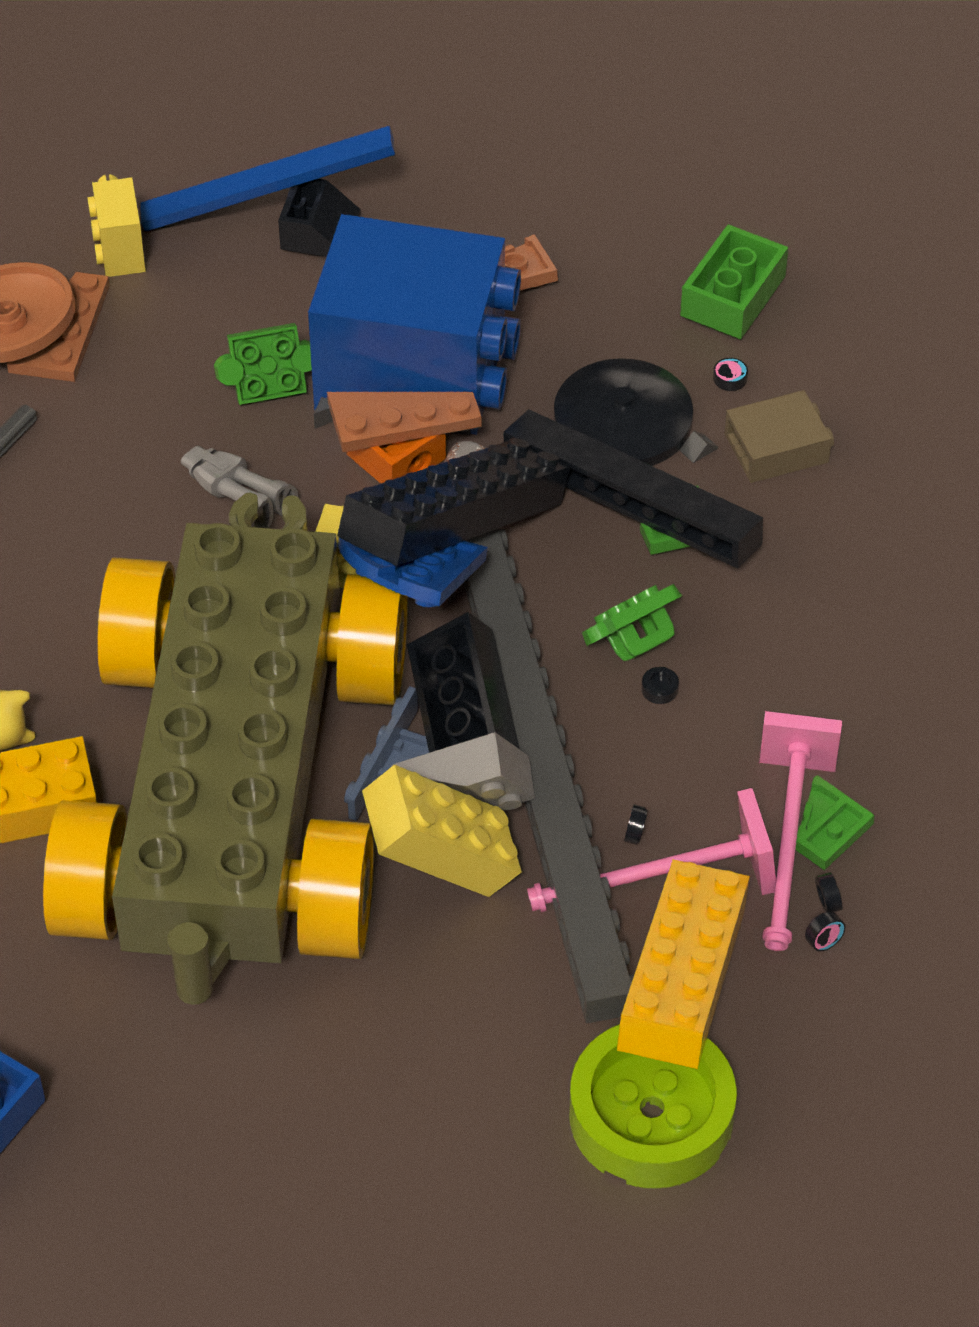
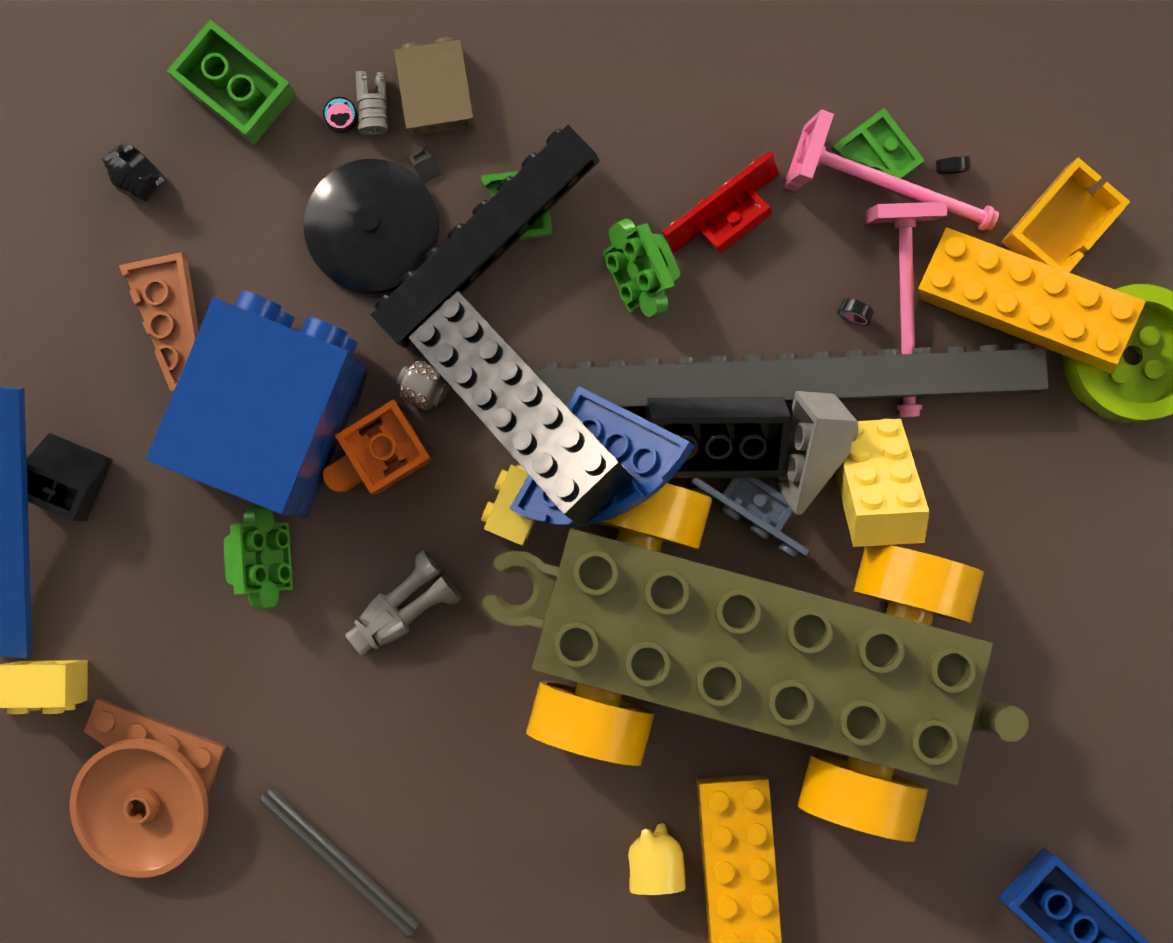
camera: 85 degrees left, 35 degrees up
(322, 413) = (319, 507): dark grey piece -> none
(394, 417) = (372, 446): nougat wing -> none
(627, 227) = (132, 172): none -> black hair
(660, 685) = (701, 259): black tile -> none
(715, 688) = (728, 211): none -> red bracket
(744, 391) = (372, 106): none -> light grey hinge
(790, 1000) = (1066, 218): none -> yellow piece
(825, 931) = (990, 177): black tile -> none

